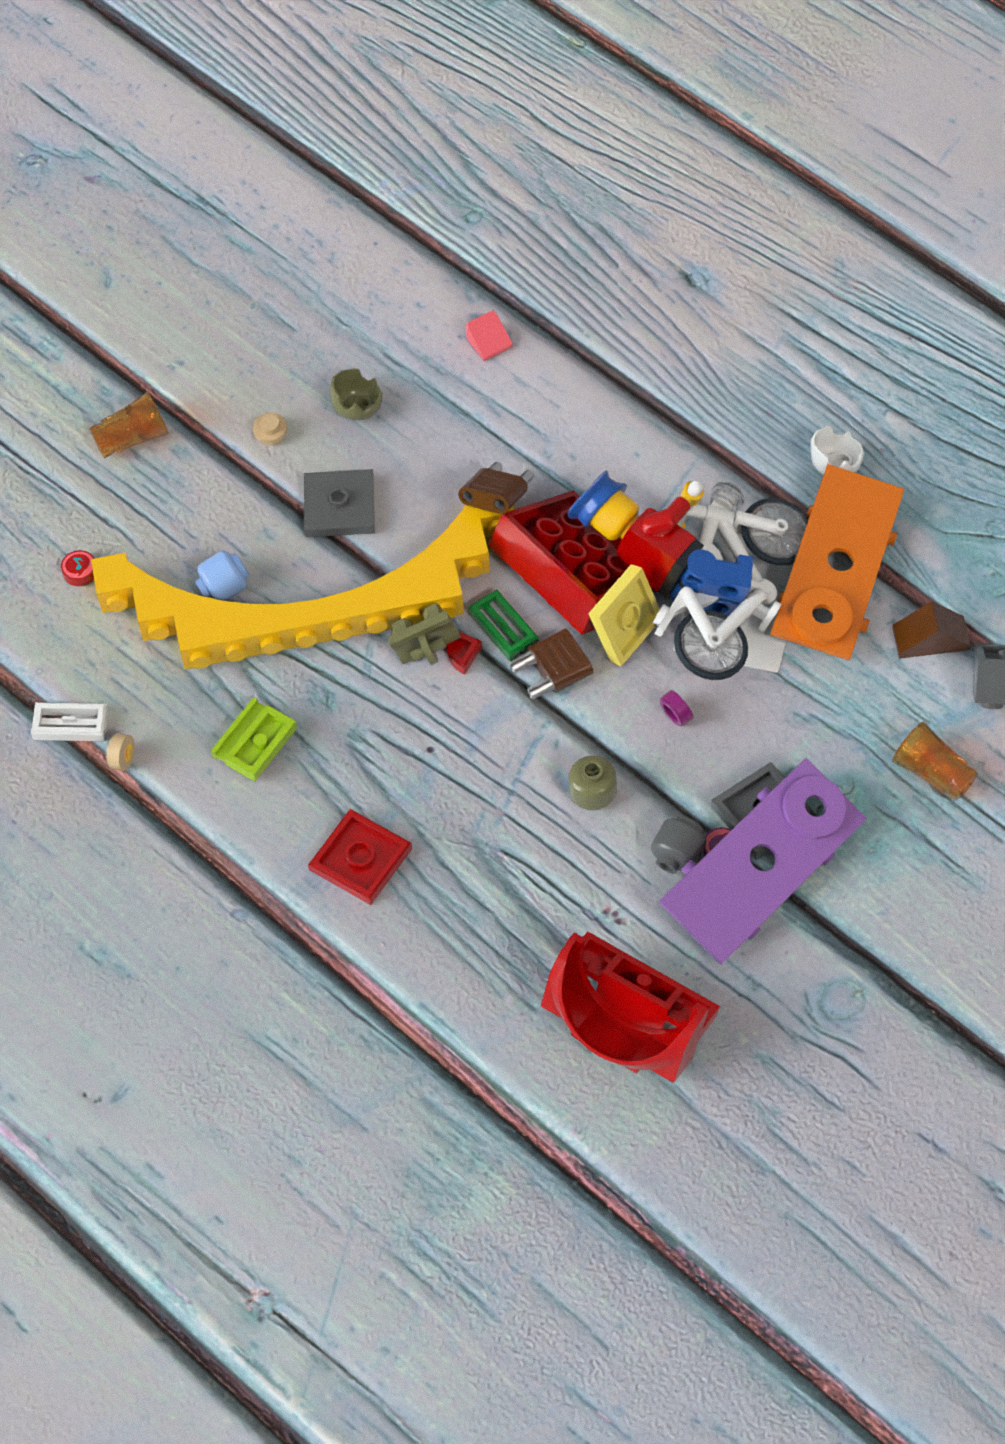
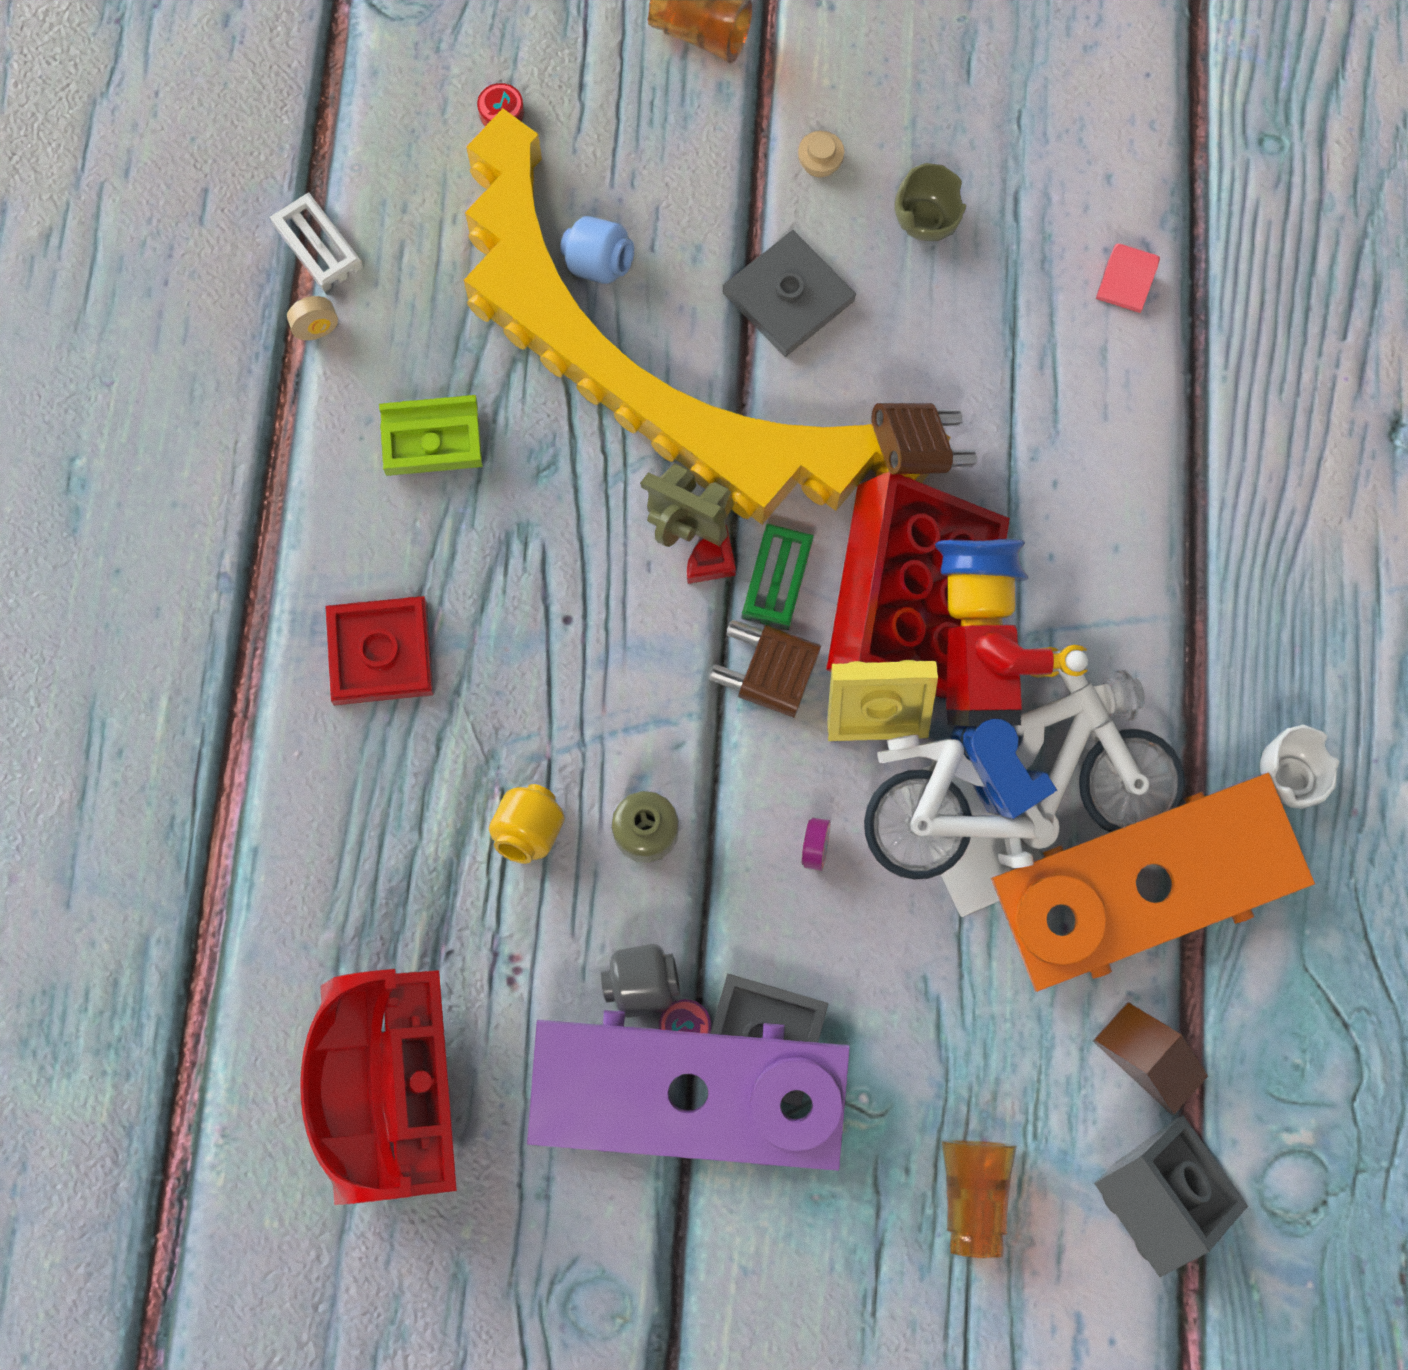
camera: 45 degrees right, 15 degrees up
(536, 843) = (526, 823): none -> yellow head

